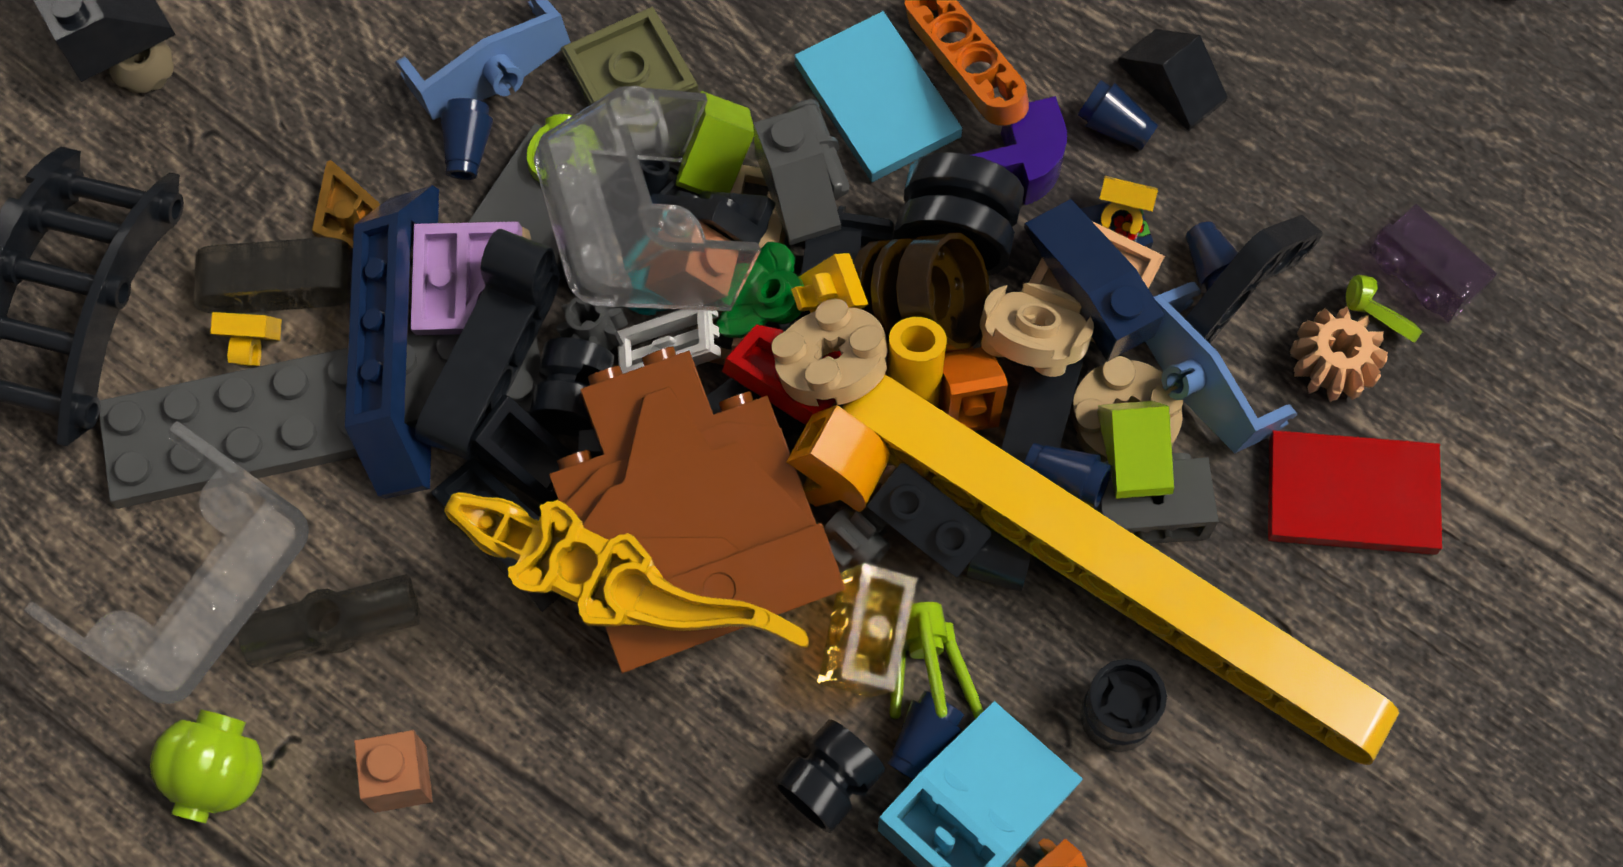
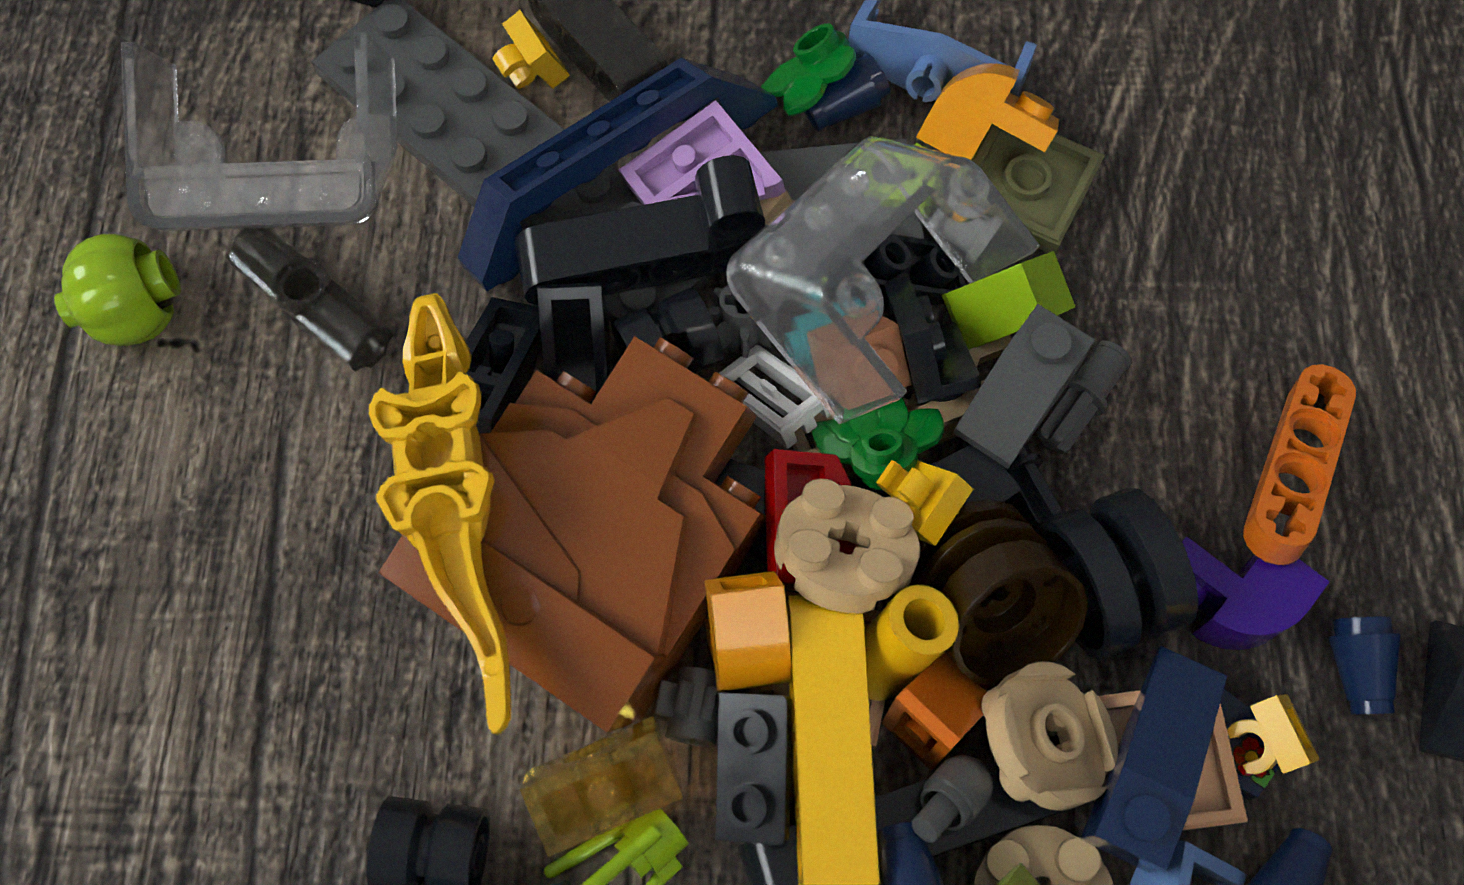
camera: 55 degrees right, 0 degrees up
(340, 205) = (708, 42): pearl gold piece -> none
(393, 771) = (195, 443): nougat brick -> none
(429, 146) = (820, 59): none -> green plate
(554, 57) = (984, 98): none -> light orange brick
(878, 96) = (1187, 414): medium azure tile -> none
(1033, 410) = (953, 797): none -> dark grey cylinder

